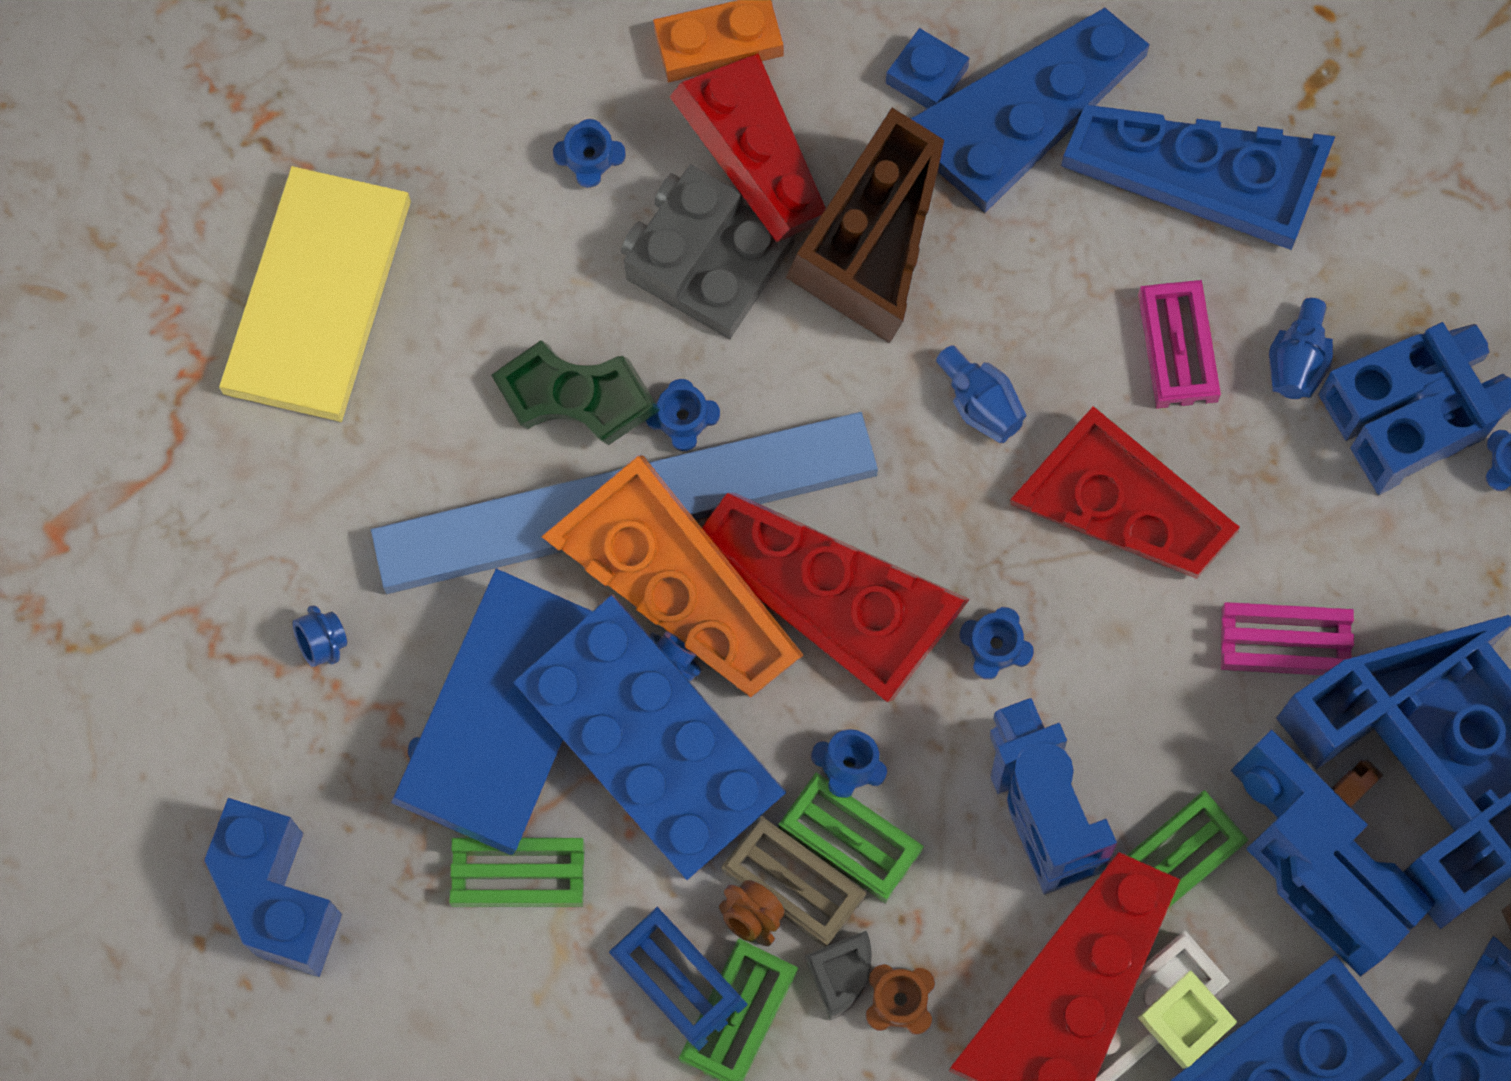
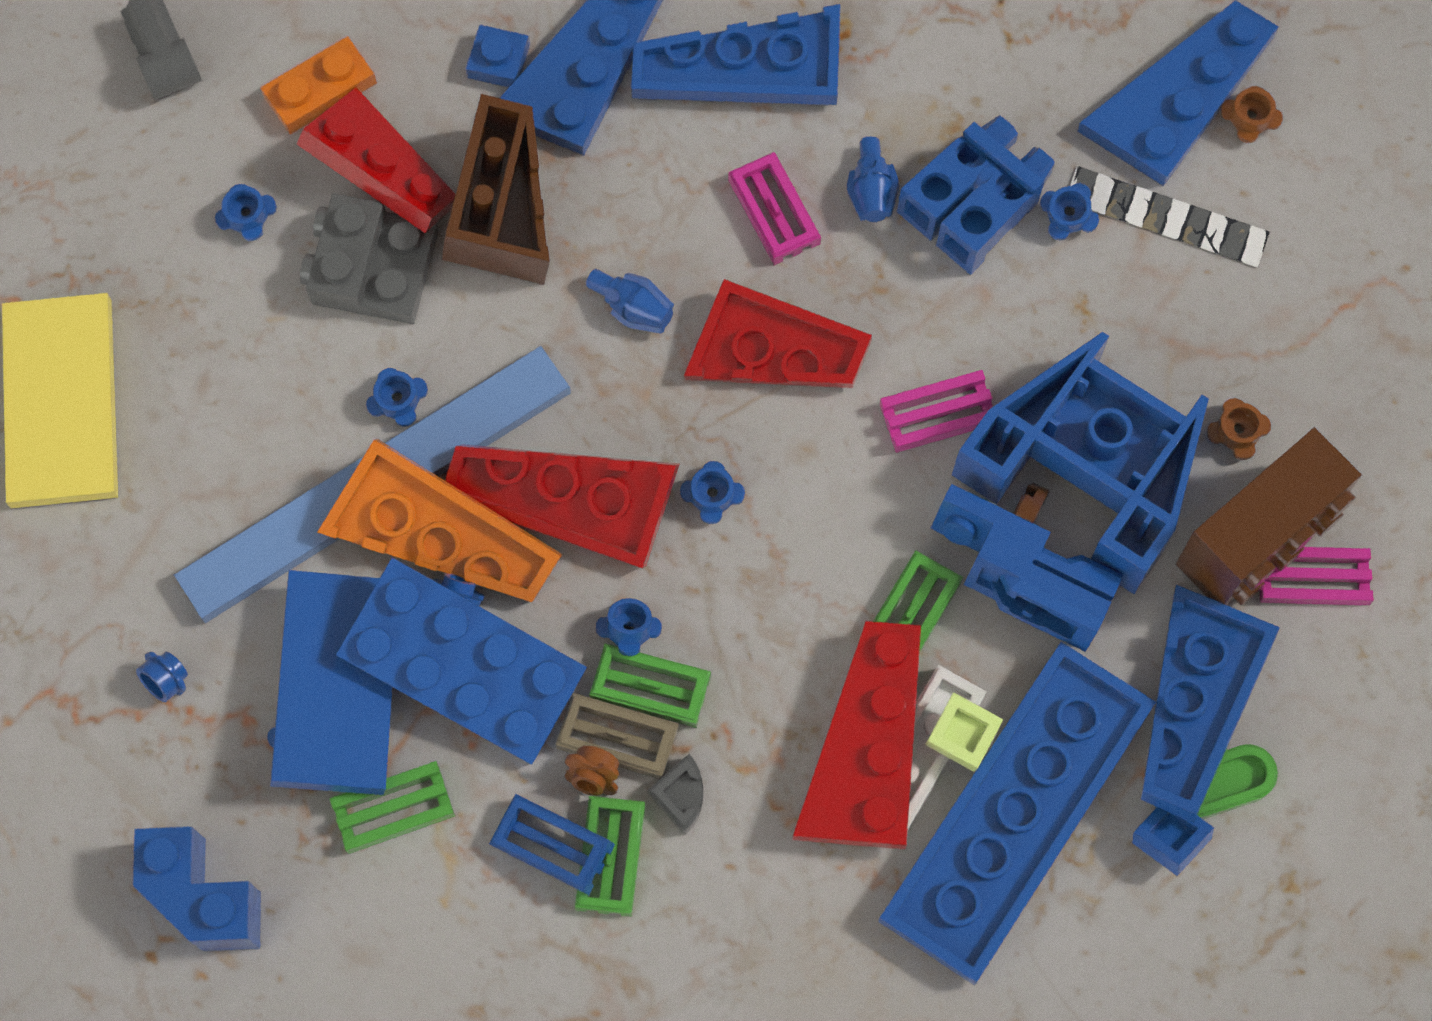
camera: 20 degrees left, 0 degrees up
(602, 396) = (325, 404): dark green tile -> none
(914, 985) = (738, 782): dark orange plate -> none
(1042, 800) = (792, 601): blue hips -> none

